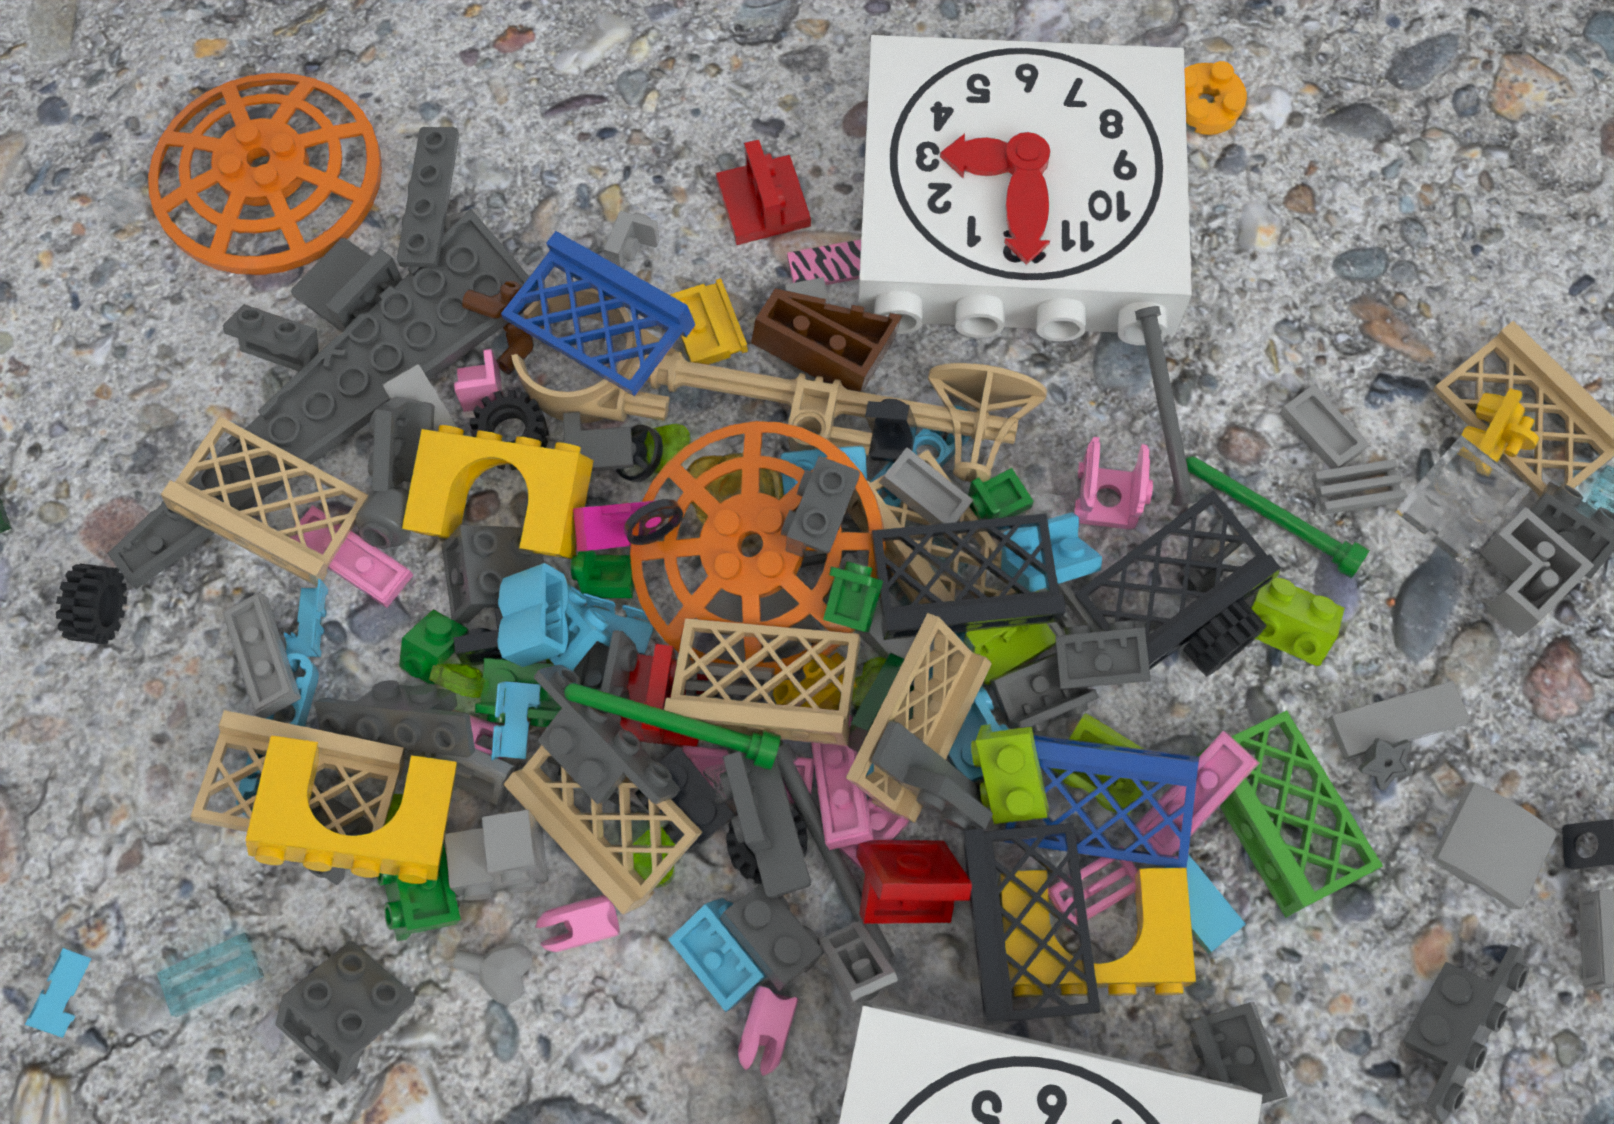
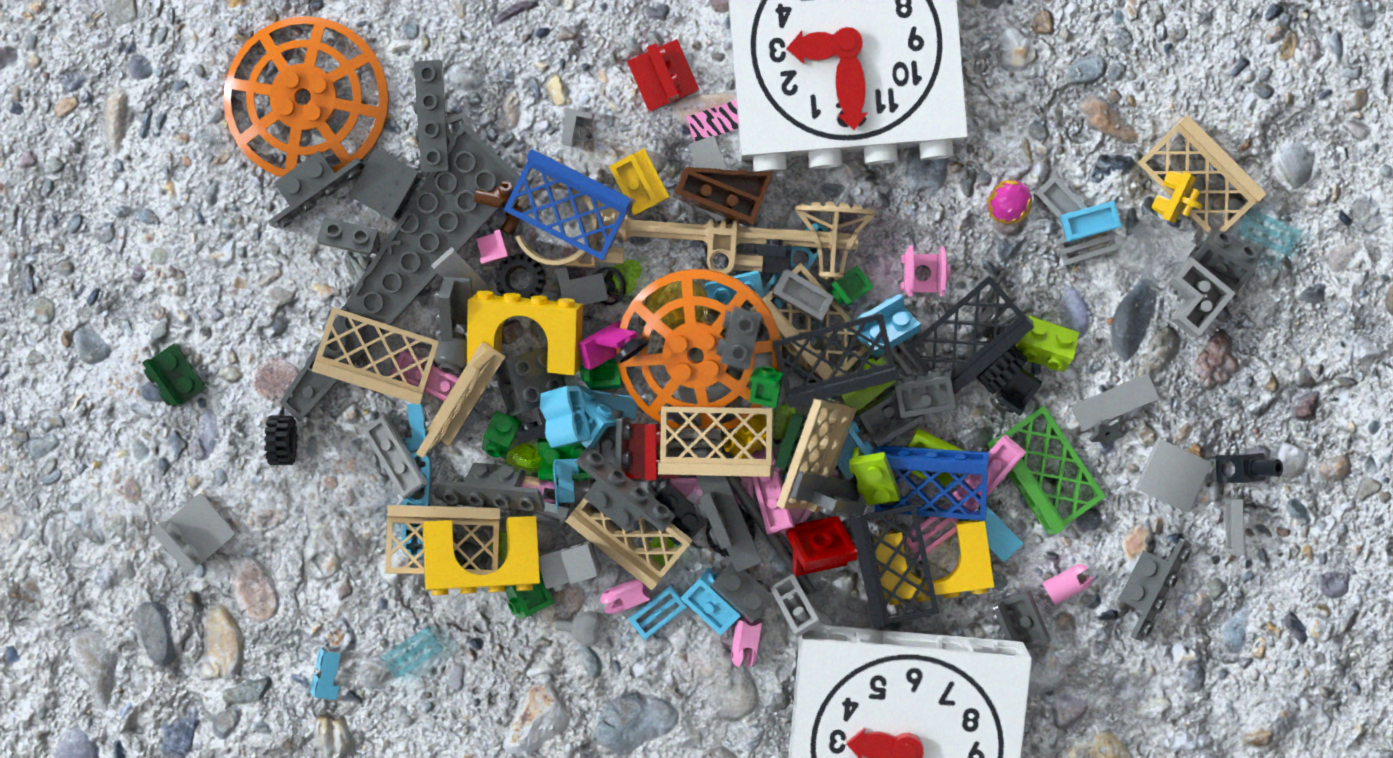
camera: 10 degrees left, 20 degrees up
(237, 270) = (308, 184): none -> dark grey bracket
(342, 1009) = (497, 662): dark grey bracket -> none
(386, 572) = (462, 398): none -> tan fence
(638, 976) = (639, 626): none -> medium azure tile
(758, 747) = (719, 485): green piece -> none
(1166, 405) = (972, 267): dark grey bar -> none
(1243, 414) = (1009, 202): none -> dark pink hair
(1249, 679) = (1019, 391): none -> black bracket
(1316, 1003) = (1067, 584): none -> bright pink piece
(1345, 555) = (1079, 296): green piece -> none
(1365, 450) = (1090, 221): none -> medium azure tile

